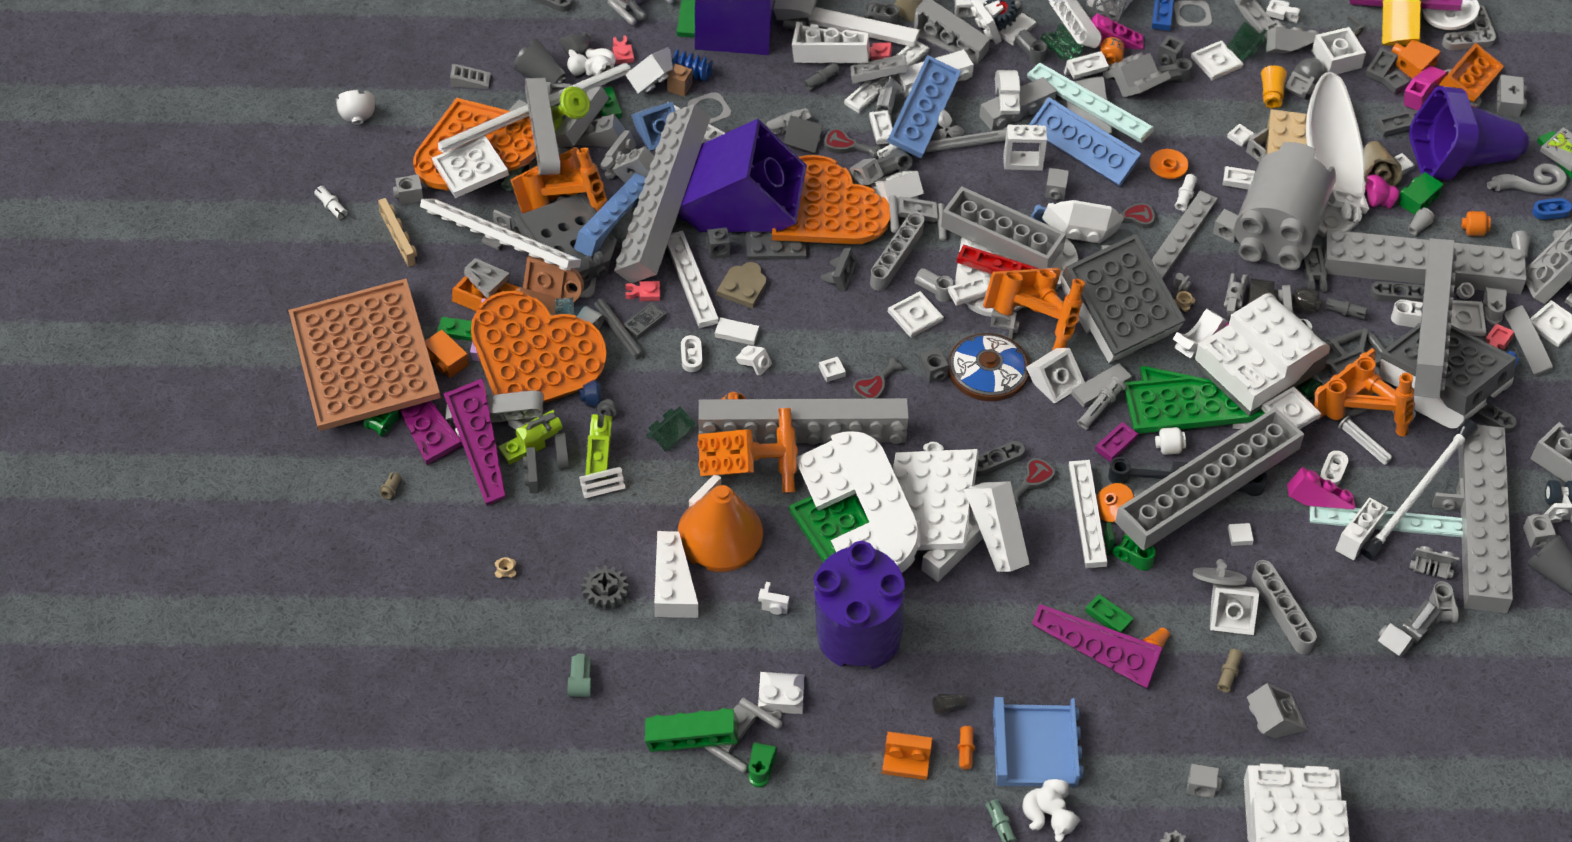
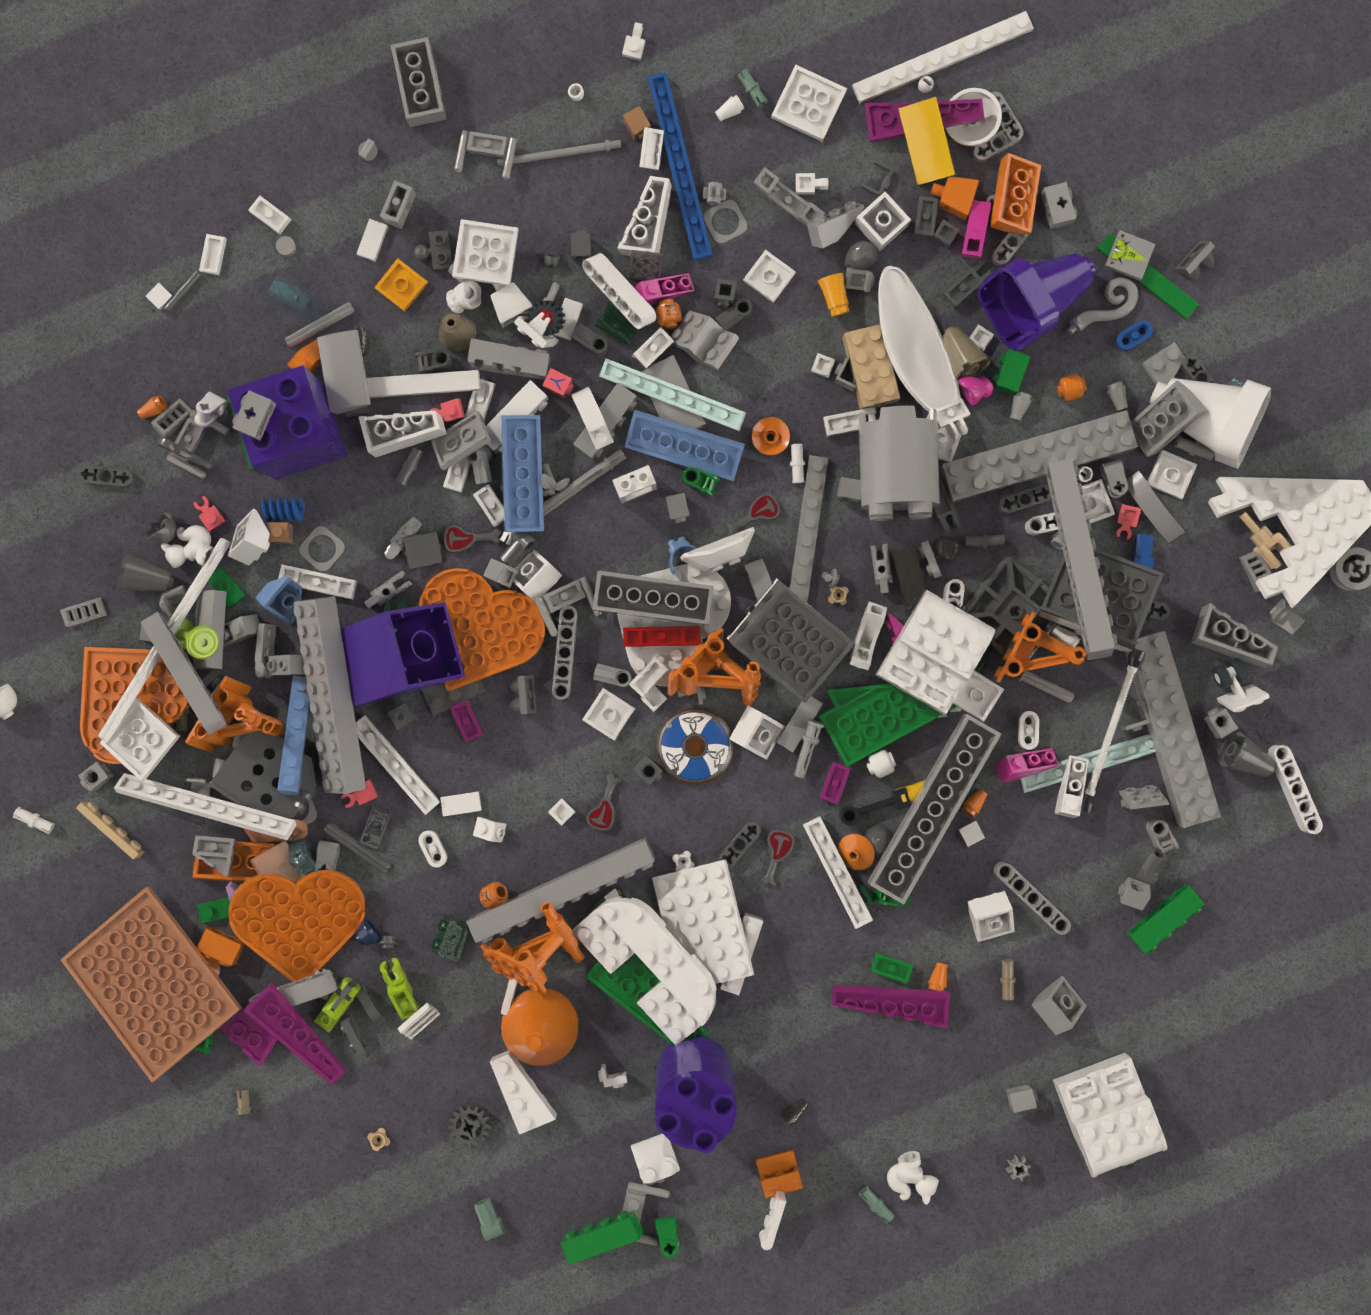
camera: 20 degrees left, 35 degrees up
(743, 284) = (444, 748): dark tan plate -> none
(776, 270) = (466, 721): none -> magenta plate
(881, 788) = (772, 1220): none -> white plate
(965, 317) = (654, 698): none -> white tile
(966, 747) = (823, 1147): orange axle -> none
(986, 64) = (558, 383): none -> coral brick
(999, 524) = (771, 935): white wedge -> none
(1036, 744) = (877, 1118): medium blue panel -> none
(1086, 172) = (701, 481): none -> green piece
(1220, 575) = (971, 895): light grey shield -> none
(1245, 41) = (790, 242): clear green bracket -> none
(1253, 508) = (974, 803): none -> orange cone
(1421, 676) = (1165, 918): none -> green brick

